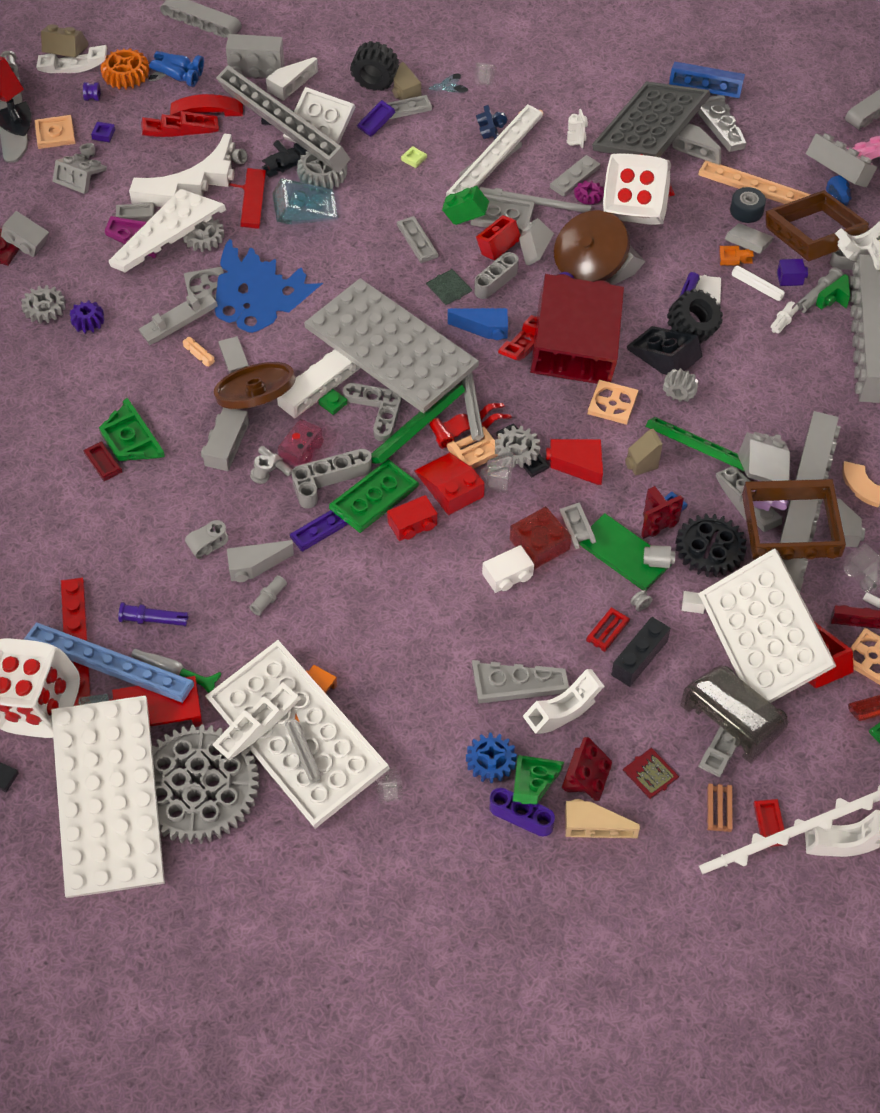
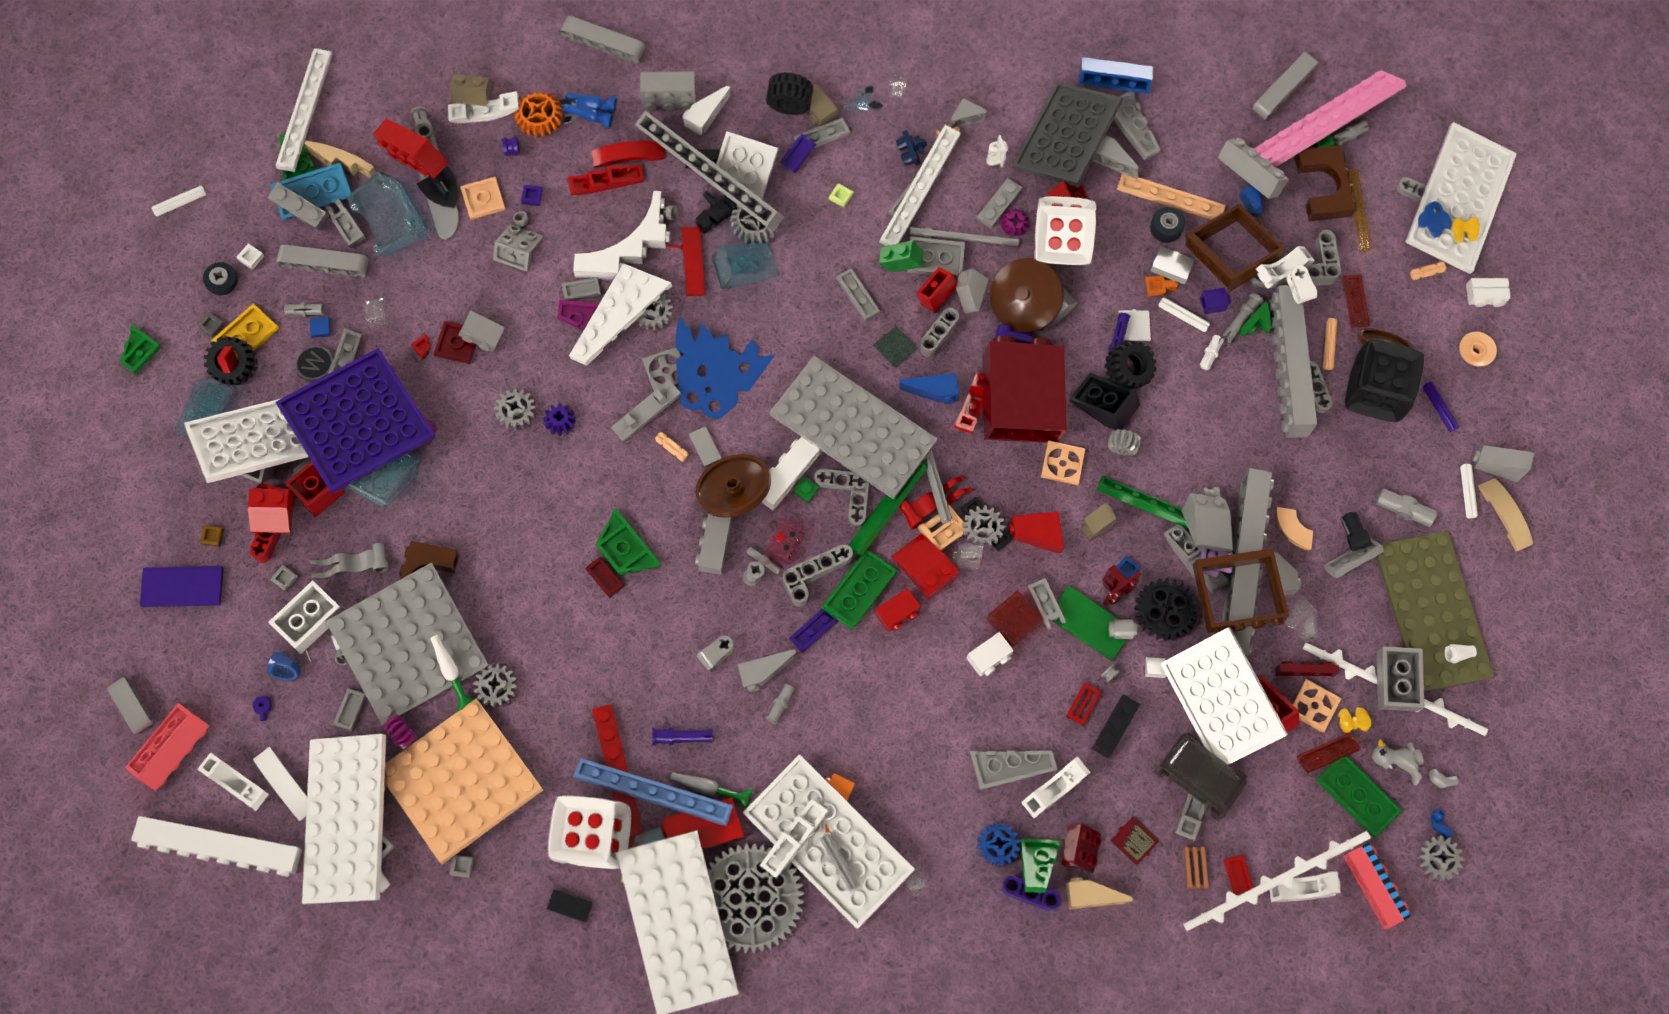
camera: 10 degrees left, 15 degrees up
(552, 100) = (967, 114): none -> light grey slope

